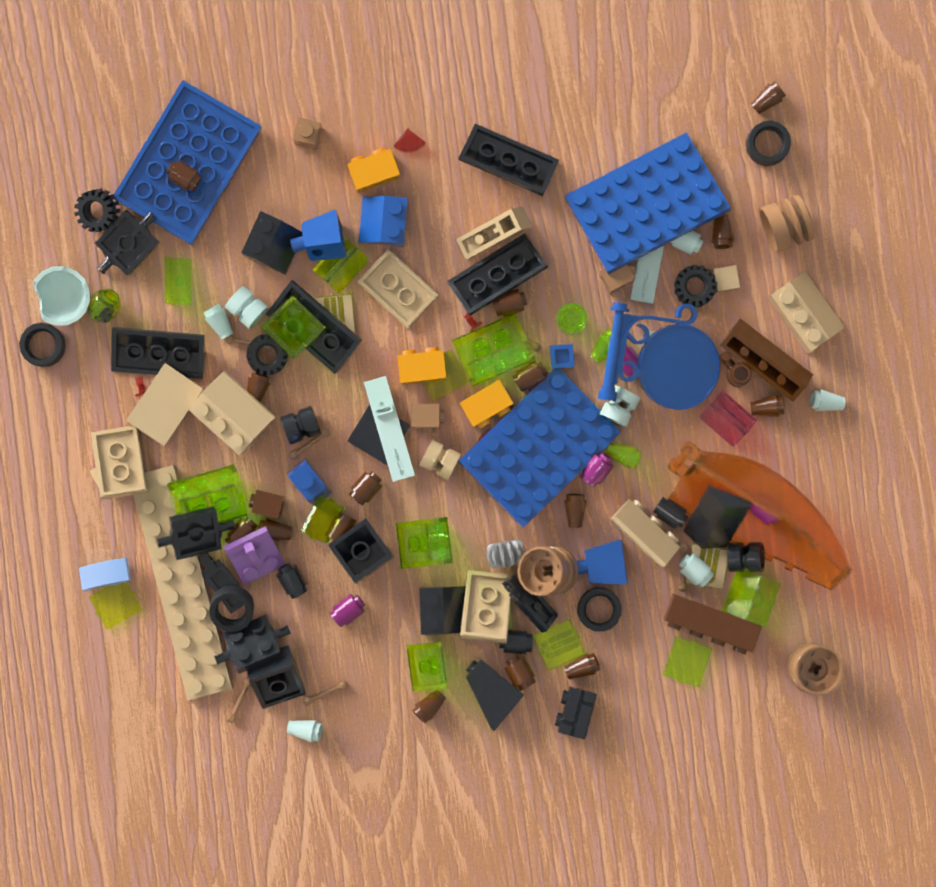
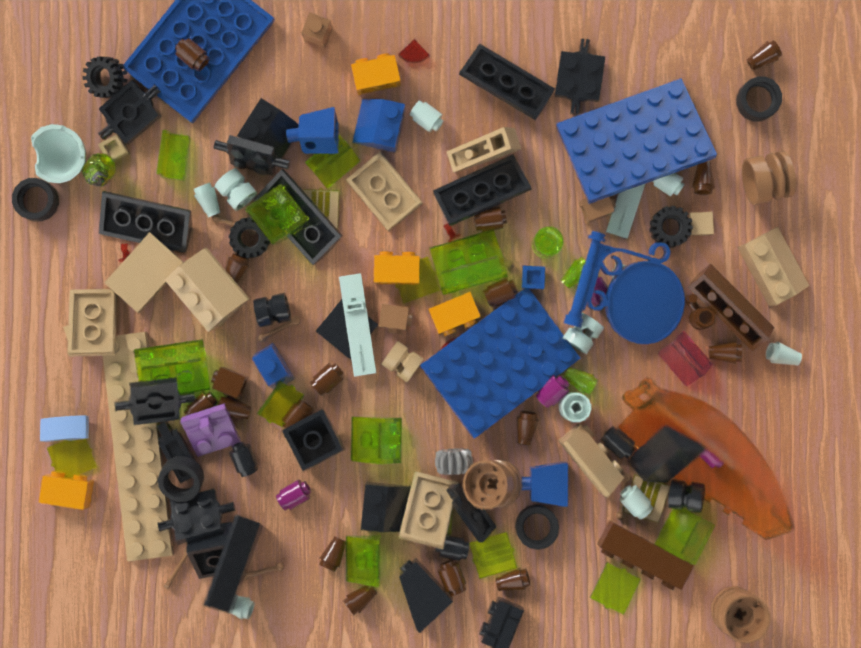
camera: 10 degrees right, 0 degrees up
(115, 280) = (114, 148): none -> tan tile
(116, 636) = (66, 491): none -> light orange brick
(258, 270) = (251, 155): none -> black plate
(297, 685) = (233, 564): none -> black slope
(395, 666) = (333, 554): none -> reddish brown cone
(431, 206) = (426, 116): none -> light aqua brick
(582, 144) = (580, 76): none -> black plate
(621, 482) = (574, 407): none -> light aqua wheel

